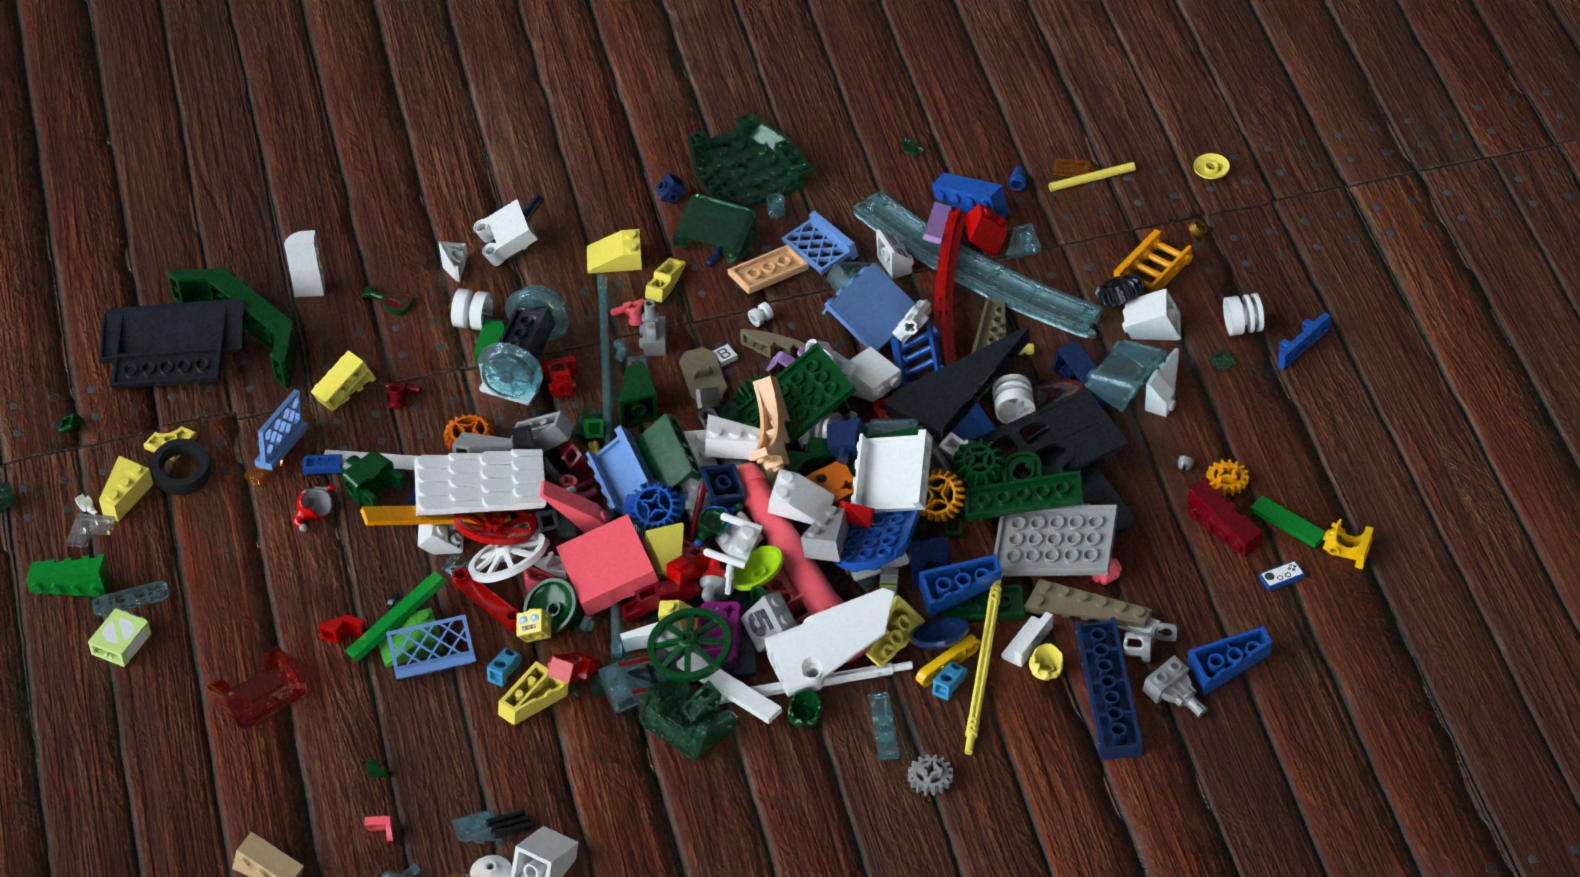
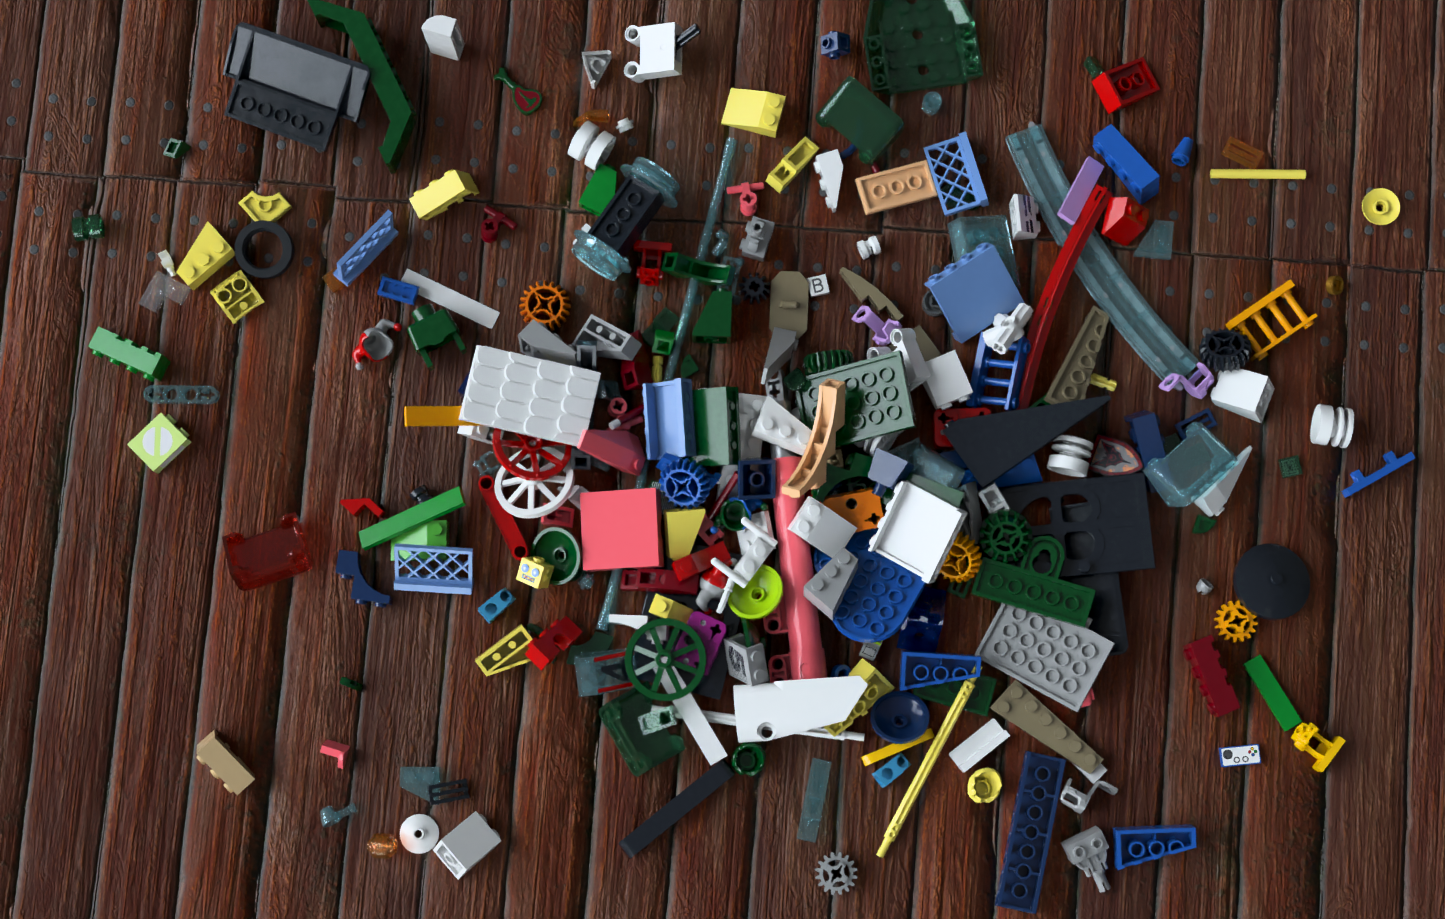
camera: 15 degrees right, 35 degrees up
(165, 508) = (236, 296): none -> light yellow slope
(366, 691) = (350, 565): none -> dark blue arch
(498, 293) = (624, 125): none -> white plate
(590, 368) = (700, 271): none -> dark green arch
(665, 370) = (750, 294): none -> black gear
(702, 274) = (830, 170): none -> white slope
(748, 771) = (676, 808): none -> black beam
(839, 336) = (931, 305): none -> dark grey wheel
(857, 513) = (868, 560): red slope -> none
(943, 149) = (1125, 85): none -> red slope
(1104, 326) = (1199, 391): none -> lavender piece
(1162, 422) = (1202, 524): none -> dark green tile
(1245, 439) = (1271, 581): none -> black dish

